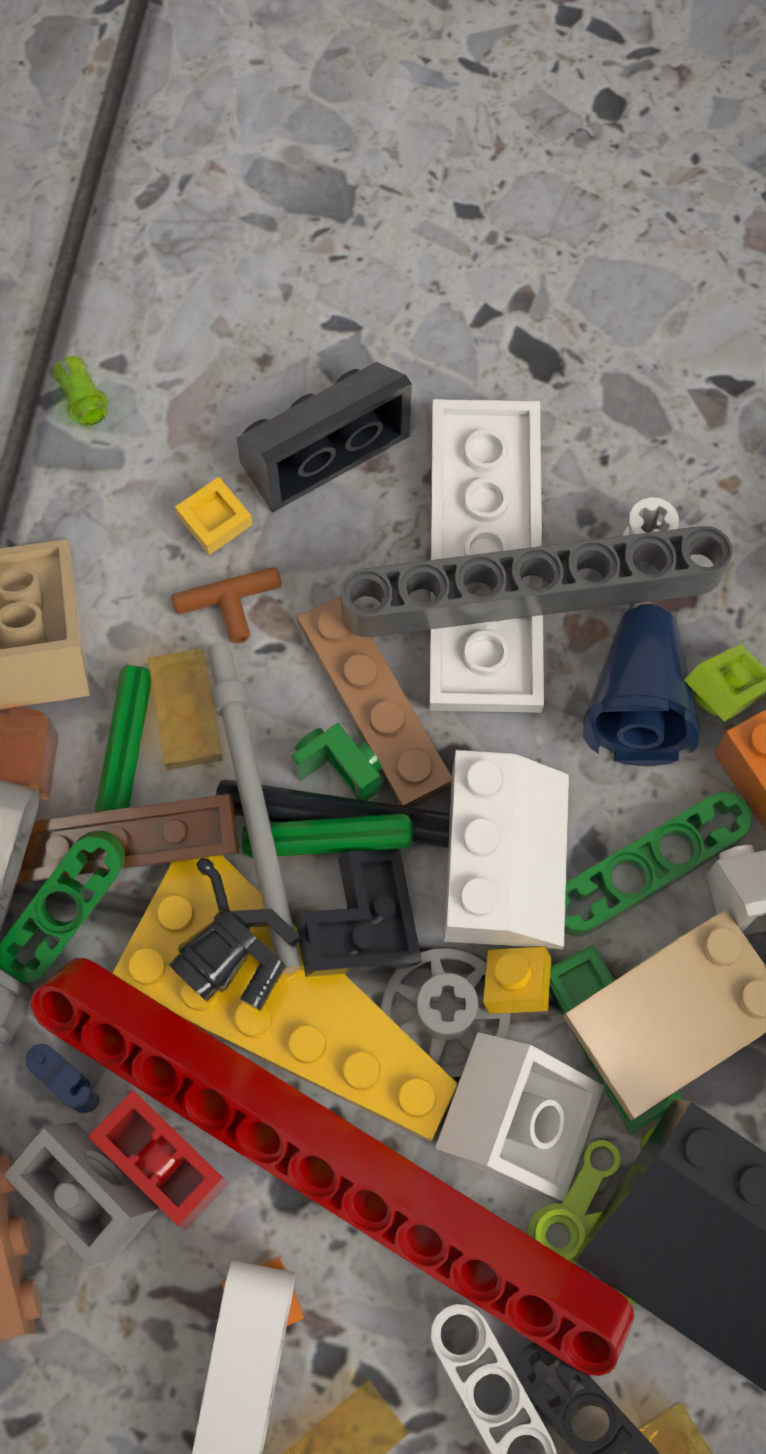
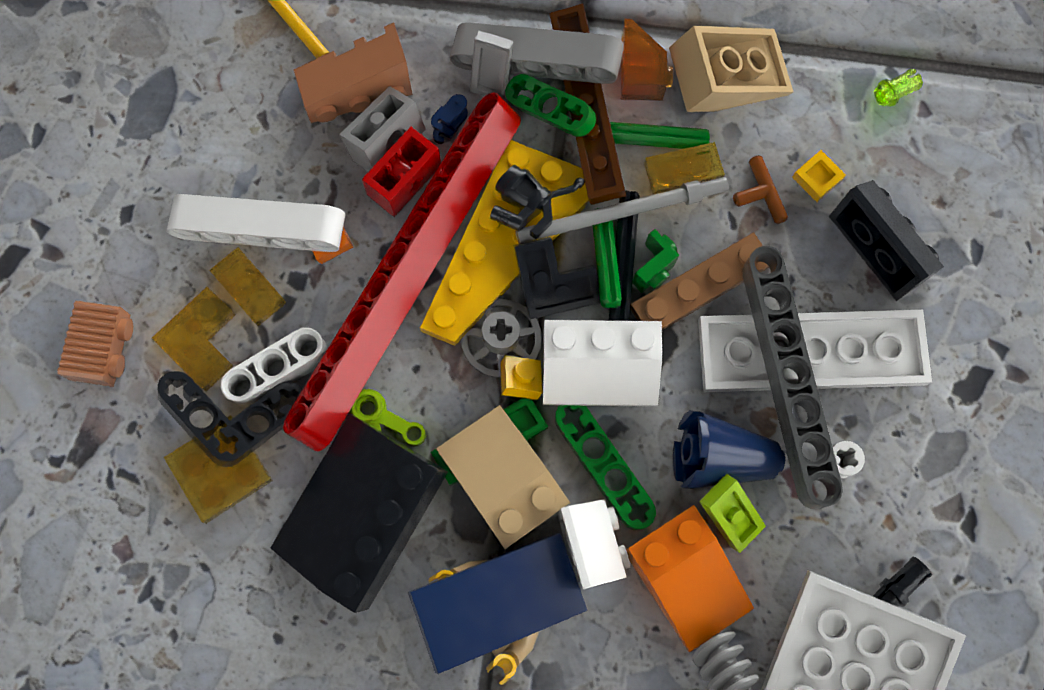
camera: 85 degrees right, 5 degrees up
(520, 1115) = (435, 381): white slope -> none

